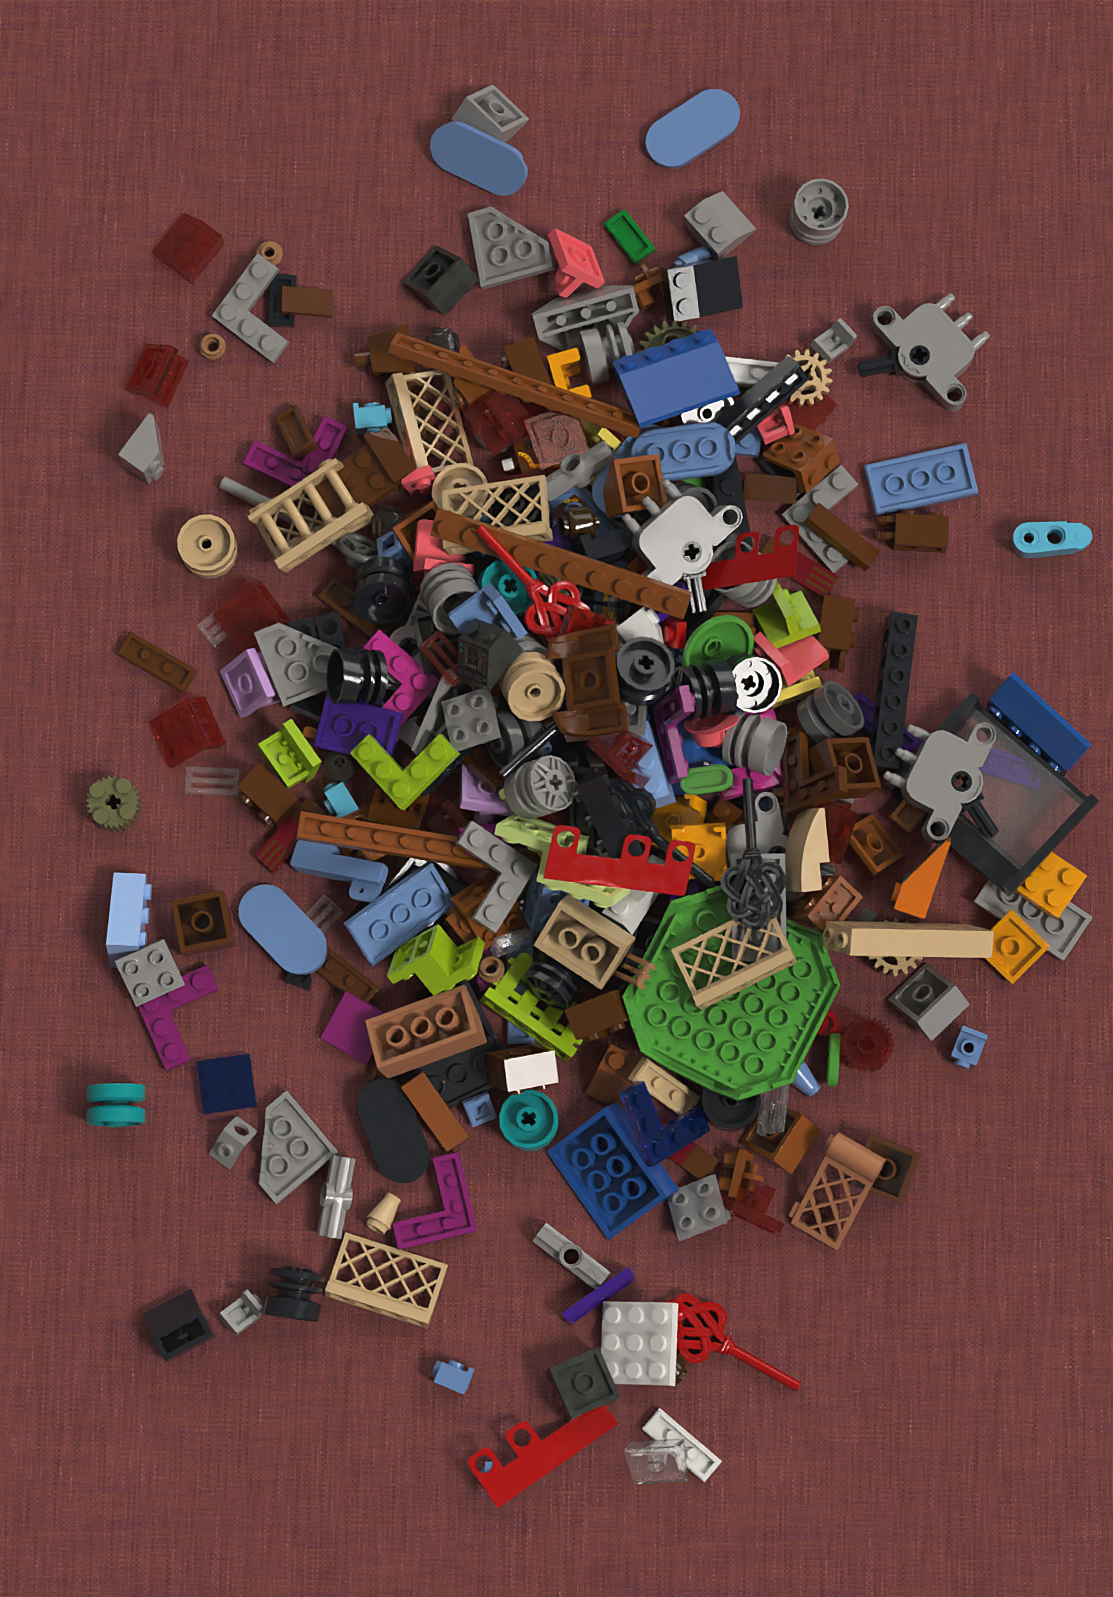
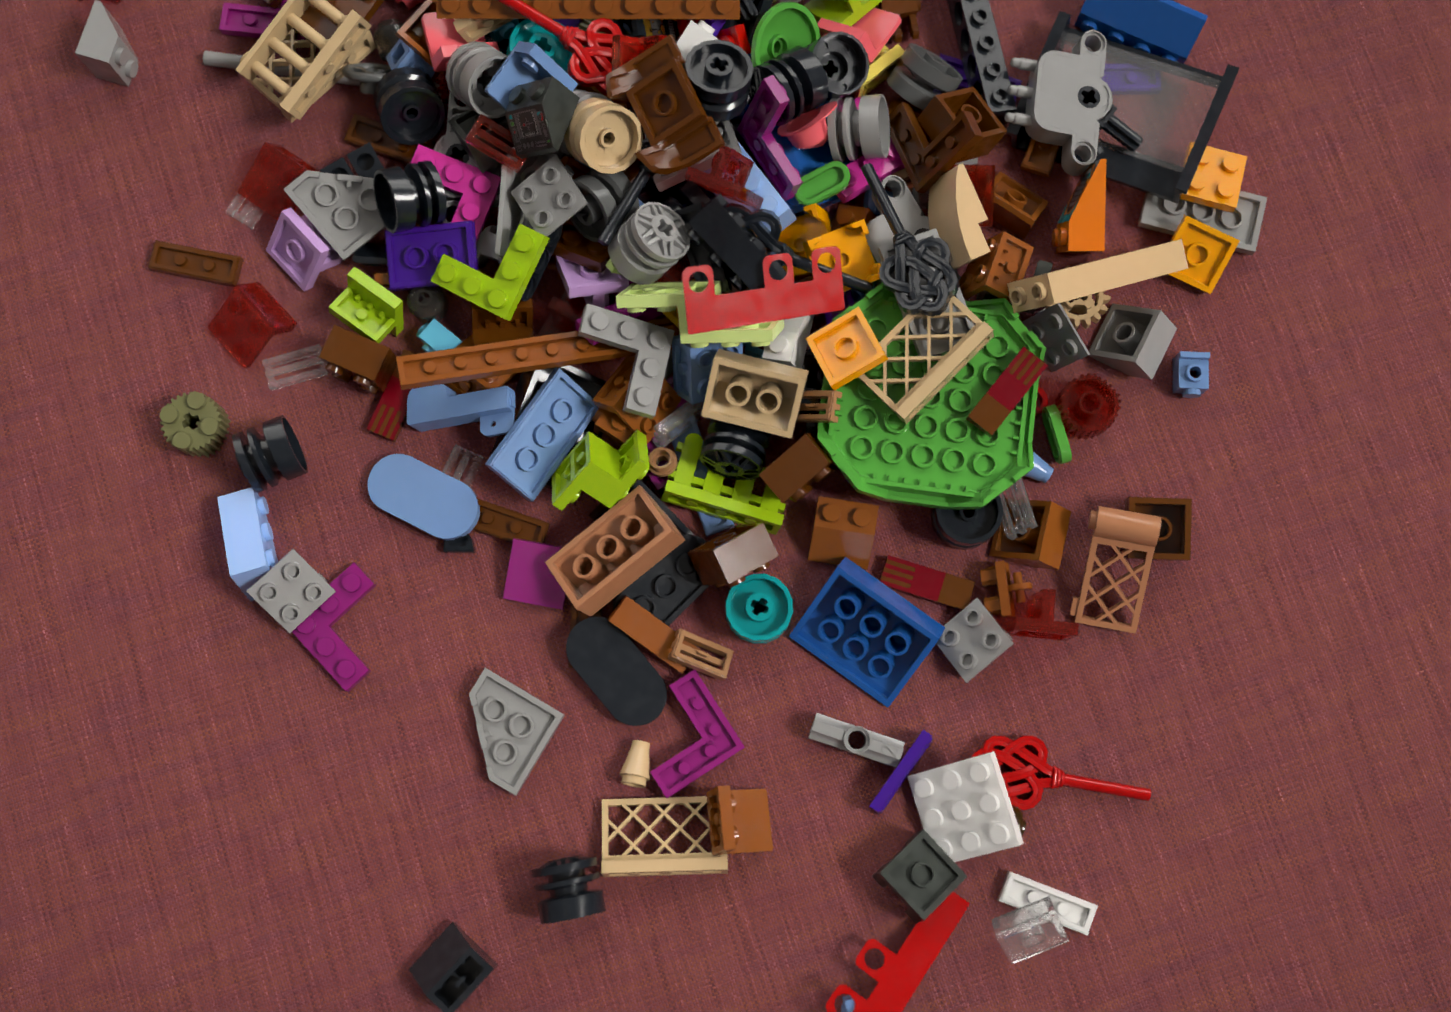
camera: 25 degrees left, 0 degrees up
(115, 1102) = (300, 748): teal wheel -> none
(168, 851) = (263, 457): none -> black wheel
(203, 923) = (333, 518): reddish brown brick -> none
(205, 531) = (208, 123): tan wheel -> none
(227, 1084) = (418, 683): clear blue plate -> none
(230, 1143) = (444, 746): light grey bracket -> none
(242, 1313) = (518, 929): light grey bracket -> none
(336, 1196) = (578, 764): light grey piece -> none
(451, 1128) = (676, 656): none -> medium nougat tile
(451, 1288) = (739, 821): none -> dark orange bracket
(452, 1376) = (774, 917): medium blue brick -> none
(479, 1109) = (701, 615): medium blue tile -> none
(655, 1140) = (903, 581): clear blue plate -> none
(664, 1086) = (891, 523): tan tile -> none
(672, 930) = (846, 348): none -> light orange plate
(794, 1011) = (1006, 392): none -> tile
(860, 979) = (1058, 336): none -> light grey hinge

